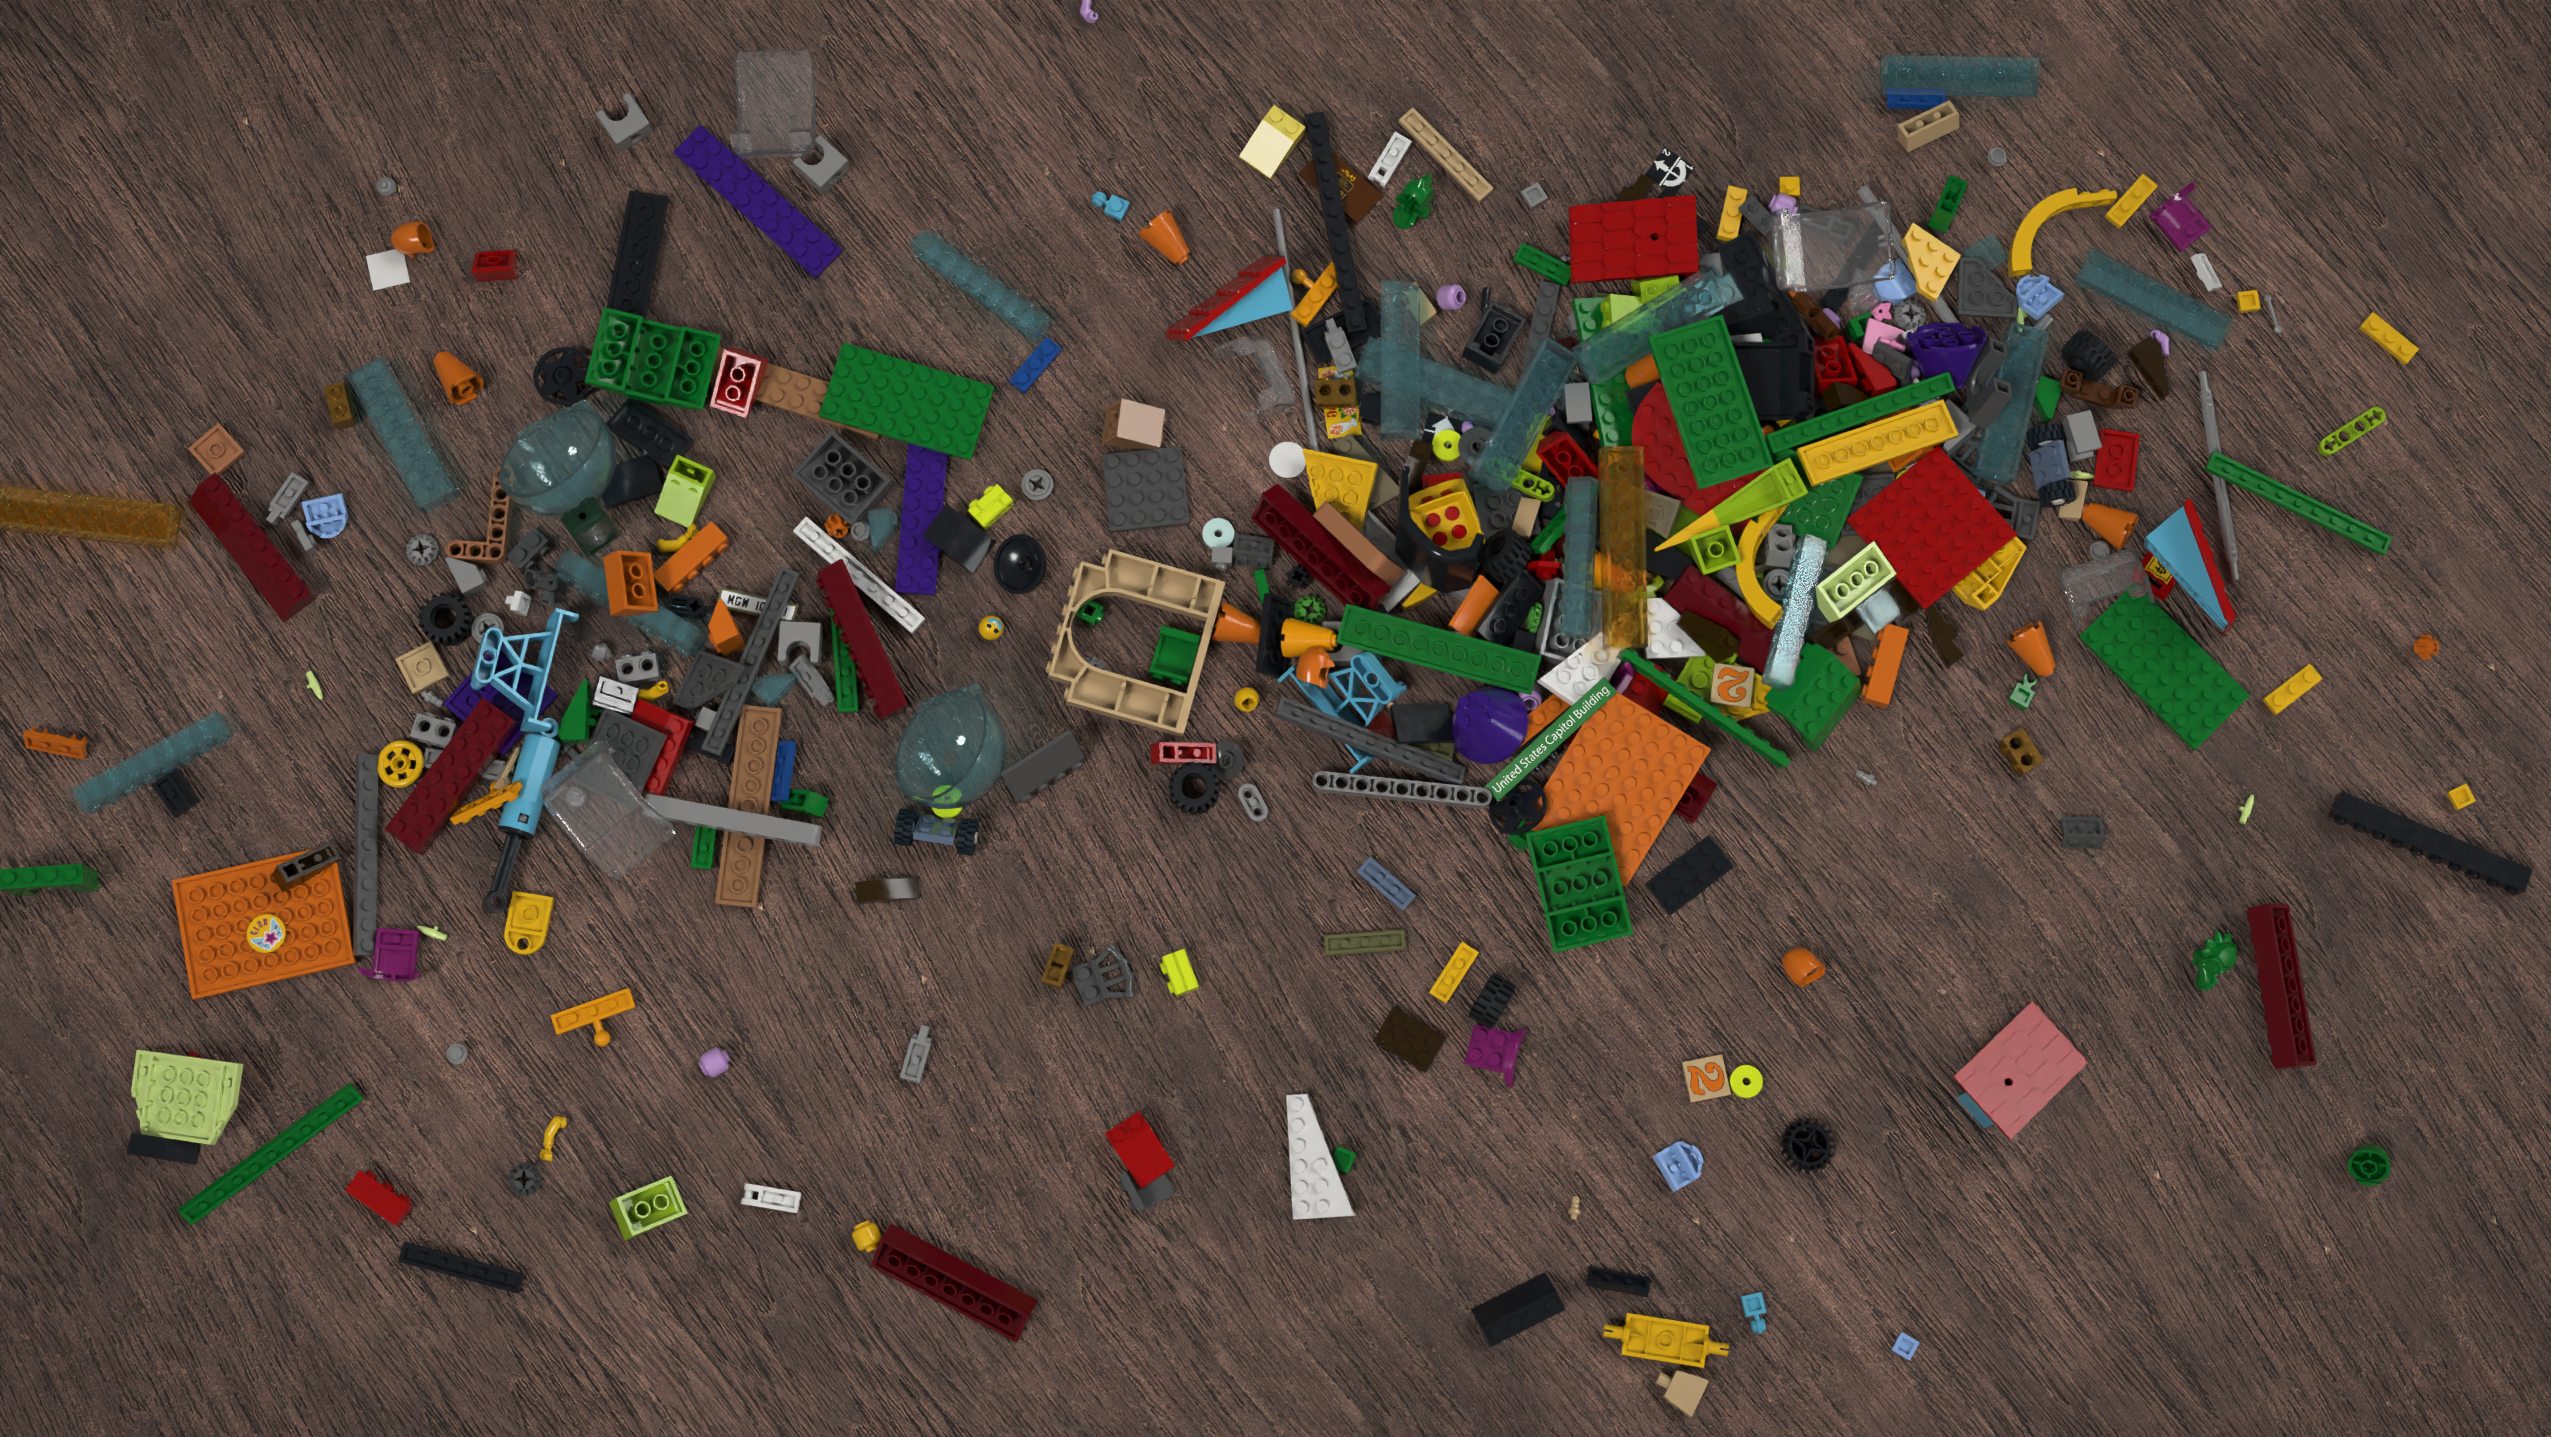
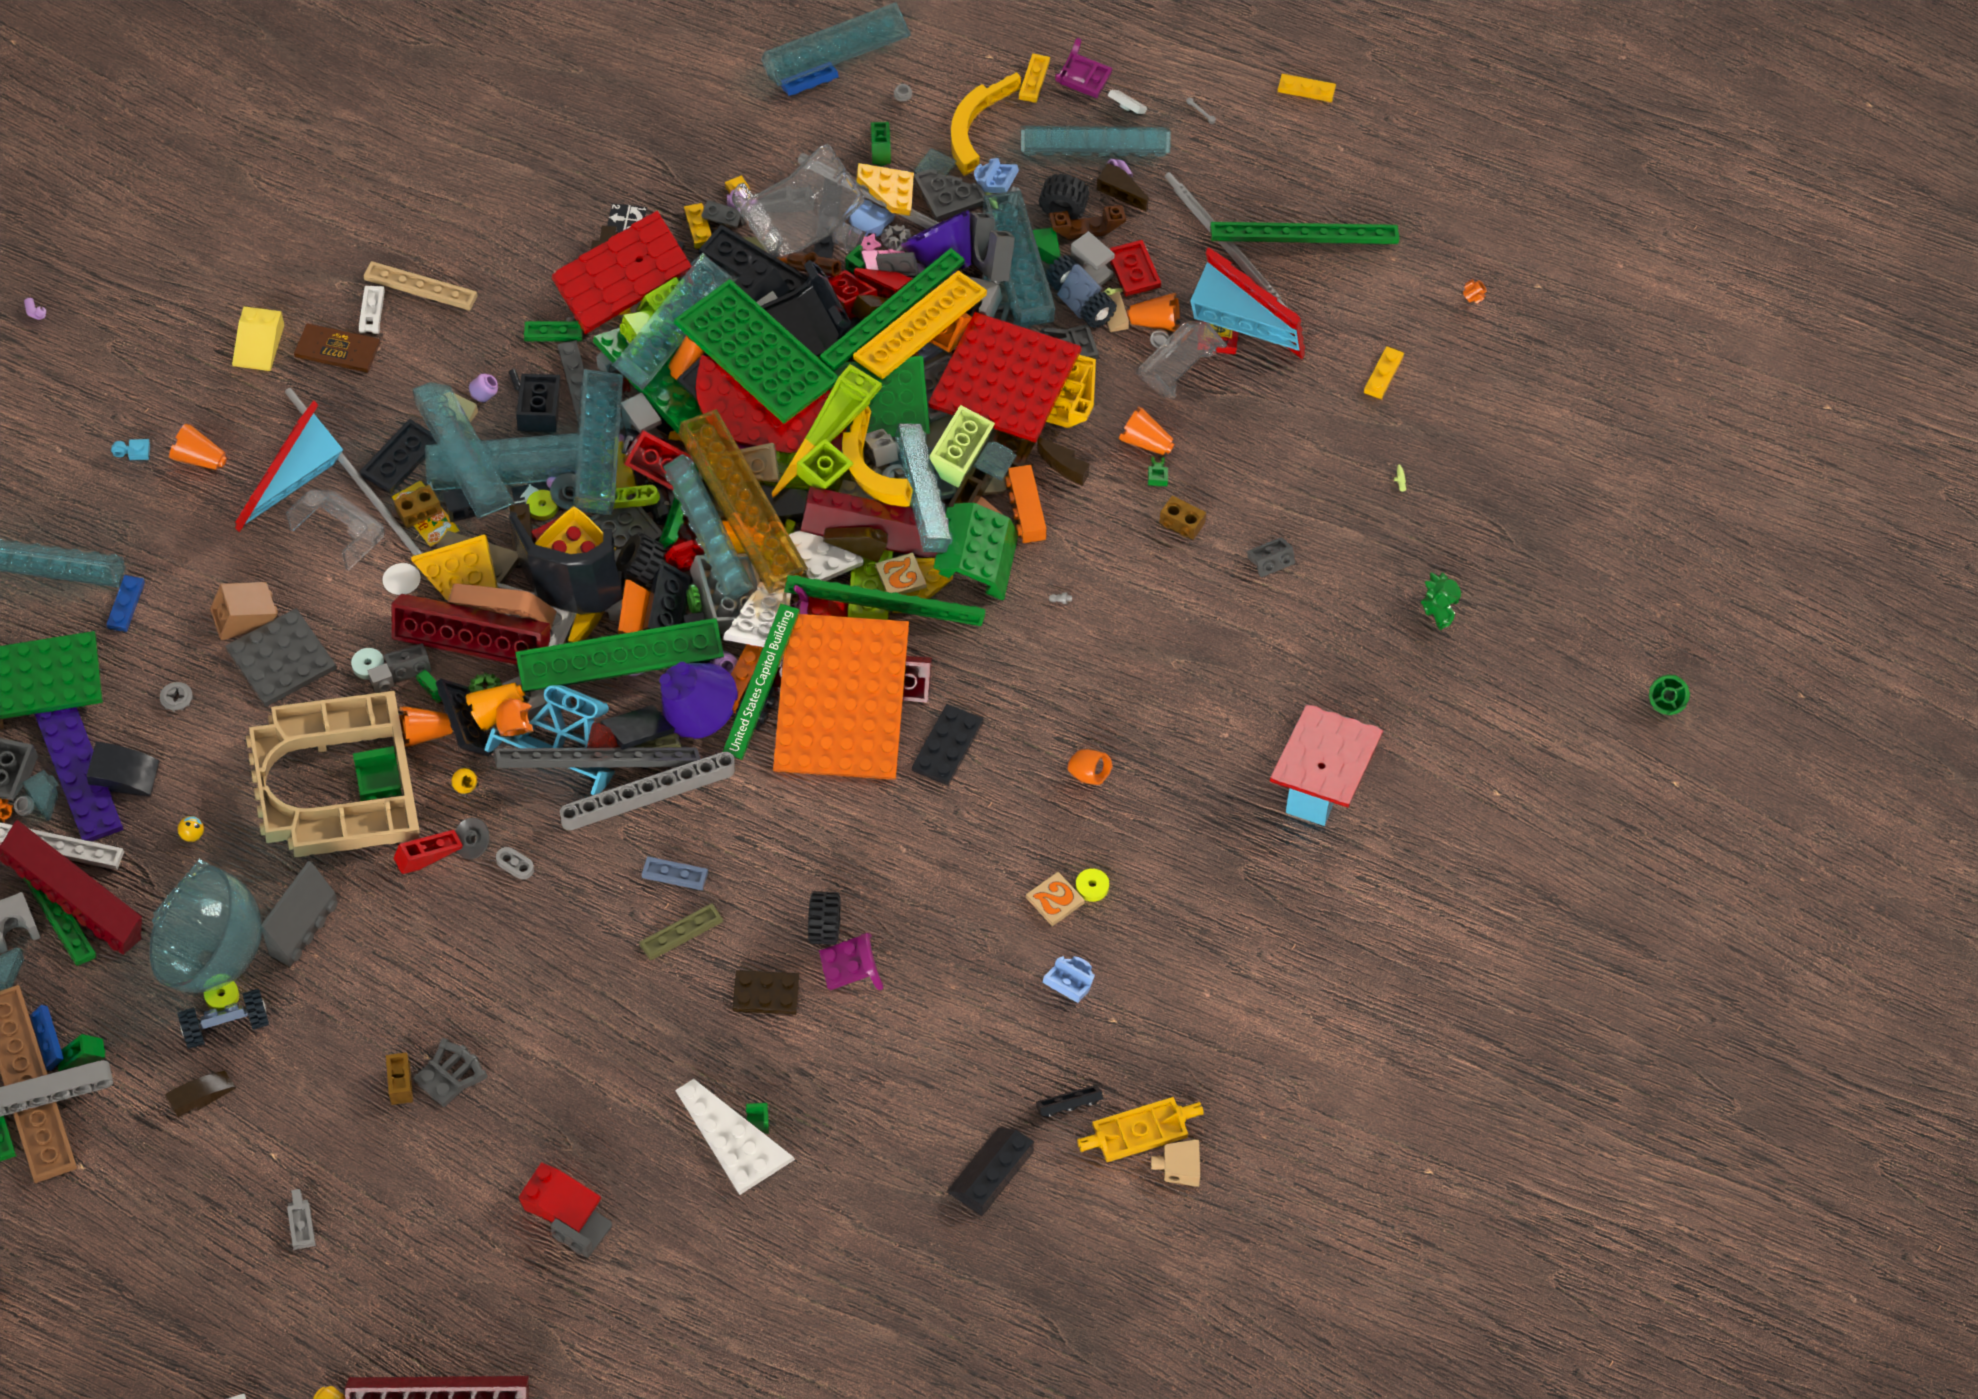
camera: 25 degrees left, 20 degrees down
(714, 1062) = (100, 1318): lavender head -> none
(812, 680) = (37, 948): light grey hinge -> none
(990, 506) = (140, 730): neon yellow brick -> none
(1011, 564) = (183, 761): black dish -> none
(1097, 616) = (280, 777): green window -> none
(1179, 973) = (519, 1033): neon yellow brick -> none
(1194, 771) = (450, 859): black tyre -> none
(1301, 574) = (460, 664): black gear -> none
(1316, 296) = (360, 436): light orange plate -> none
(1335, 223) = (348, 375): black plate -> none
(1339, 348) = (402, 467): light grey hinge -> none
(1413, 202) = (410, 329): green head -> none
(1453, 972) = (777, 917): yellow plate -> none
(1519, 807) = (762, 753): black wheel -> none
(1519, 841) = (777, 781): green panel -> none
(1526, 517) = (643, 521): tan slope -> none
(1534, 195) = (516, 283): light grey plate -> none
(1574, 1211) = (996, 1062): tan piece -> none
(1579, 884) = (850, 787): green slope -> none
(1753, 1306) = (1205, 1062): medium azure plate -> none
(1799, 1143) = (1186, 901): black gear -> none
(1905, 1346) = (1358, 1031): light blue plate -> none
(1928, 126) = (831, 92): tan brick -> none
(2164, 667) = (1266, 403): green plate -> none
(2248, 301) = (1174, 108): yellow plate -> none
(2281, 986) = (1511, 596): dark red slope -> none
(2351, 431) = (1314, 164): lime beam -> none
(2430, 843) = (1567, 433): black brick -> none
(2461, 797) = (1572, 389): yellow plate -> none

